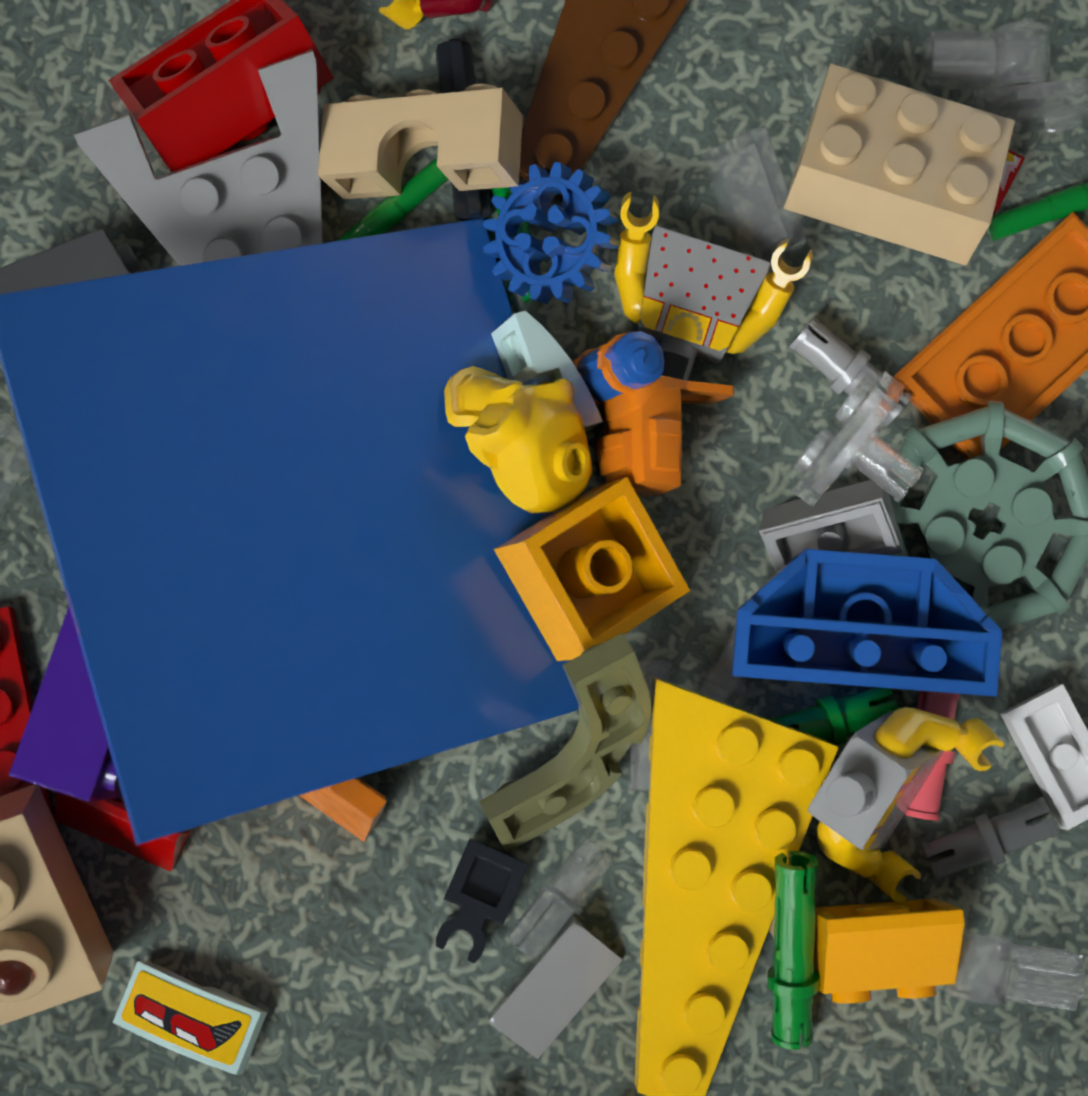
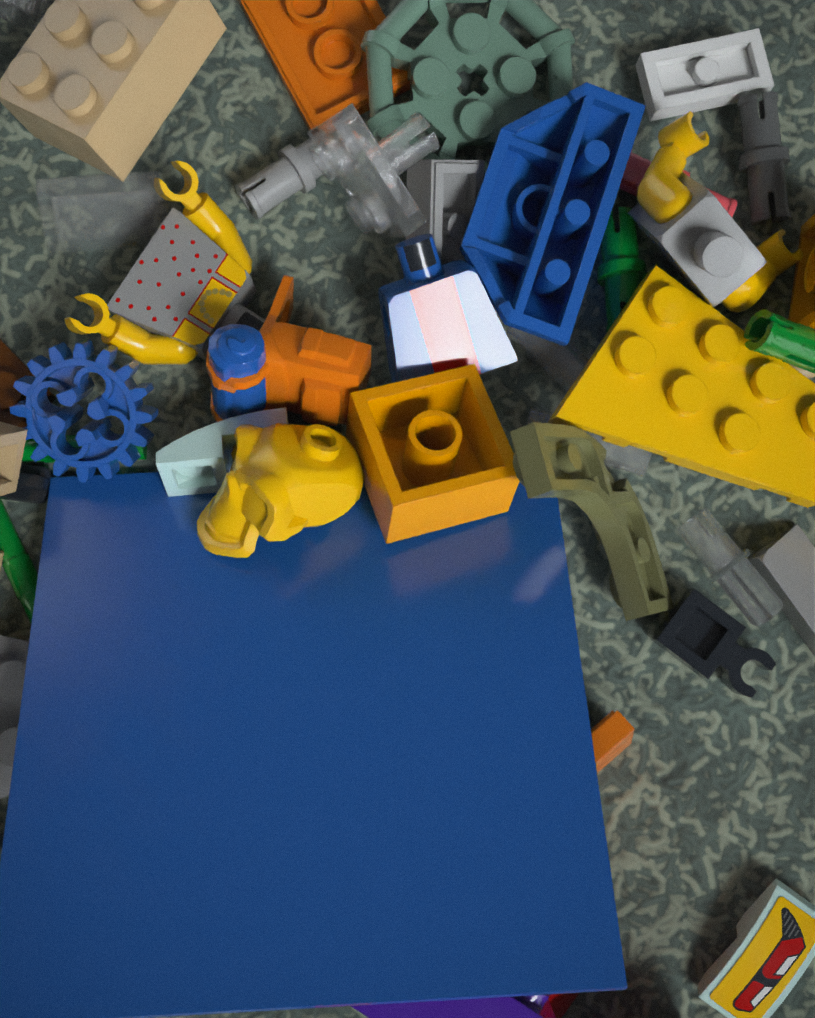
camera: 80 degrees left, 0 degrees up
(730, 547) = (439, 316): none -> torso

